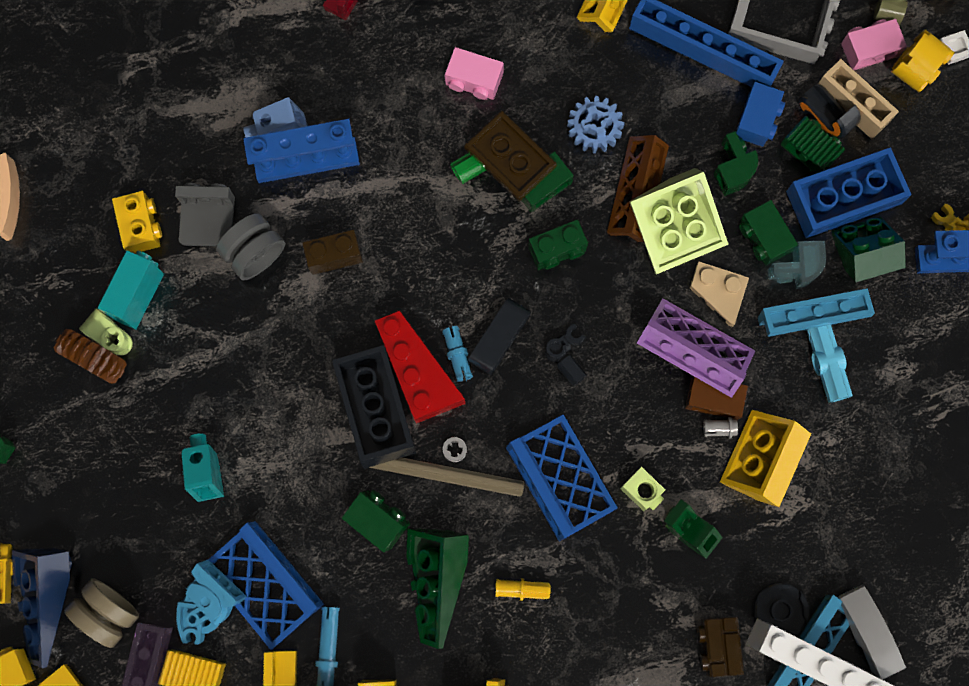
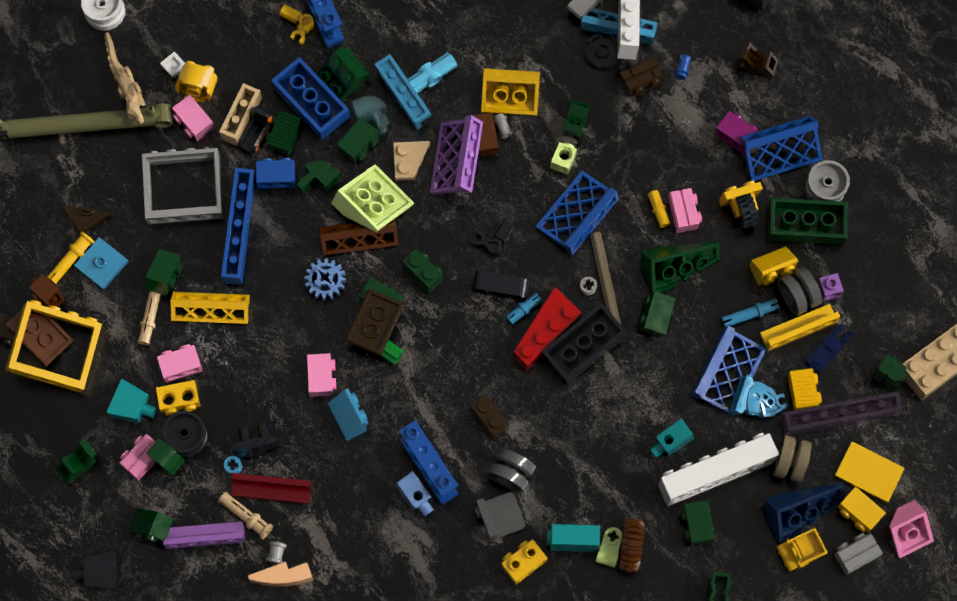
camera: 115 degrees left, 5 degrees down
(80, 454) = (698, 523): none -> dark green brick
(133, 508) = (718, 469): none -> white brick
(407, 86) = (347, 415): none -> dark azure slope
(505, 622) = (684, 210): none -> bright pink brick

